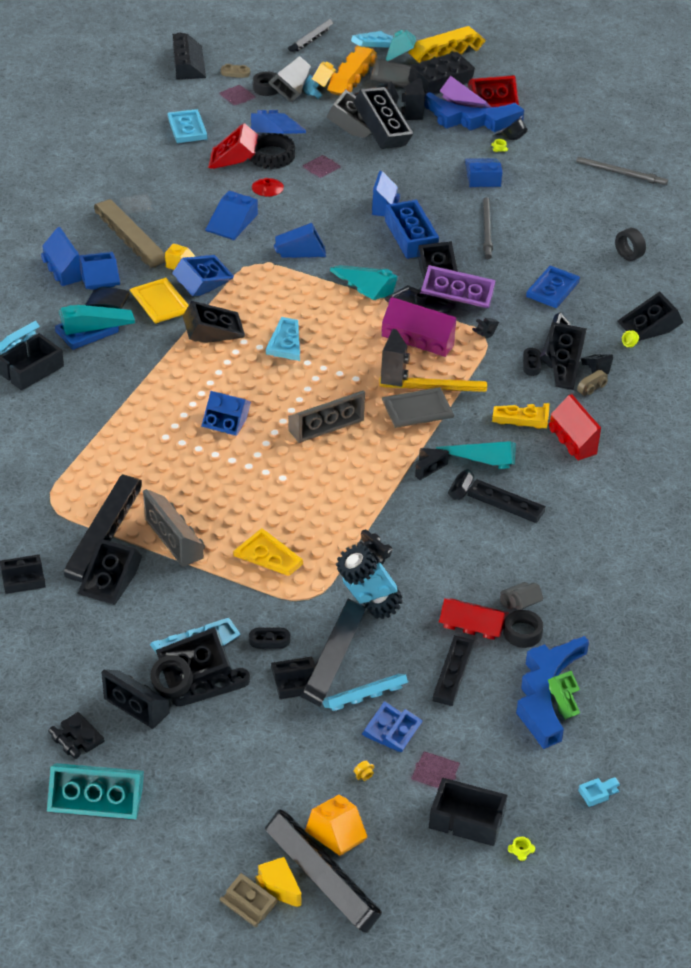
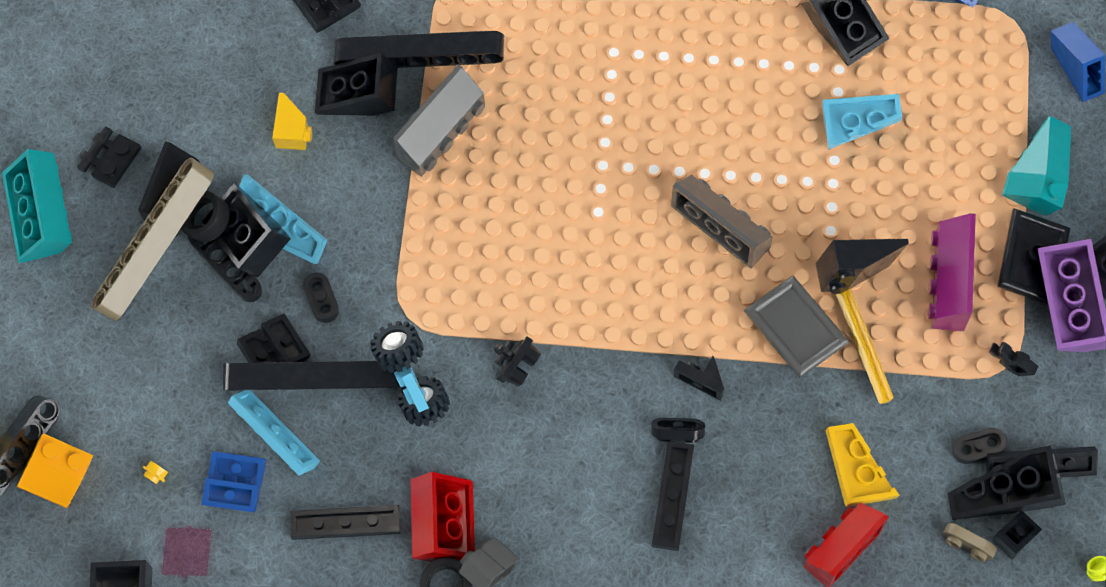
camera: 75 degrees right, 25 degrees up
(117, 616) = (290, 126): none -> yellow slope
(185, 713) = (152, 239): none -> beam
(225, 413) = (677, 101): blue slope -> none
(268, 553) = (450, 244): yellow wing -> none
(496, 453) = (751, 448): teal wedge -> none

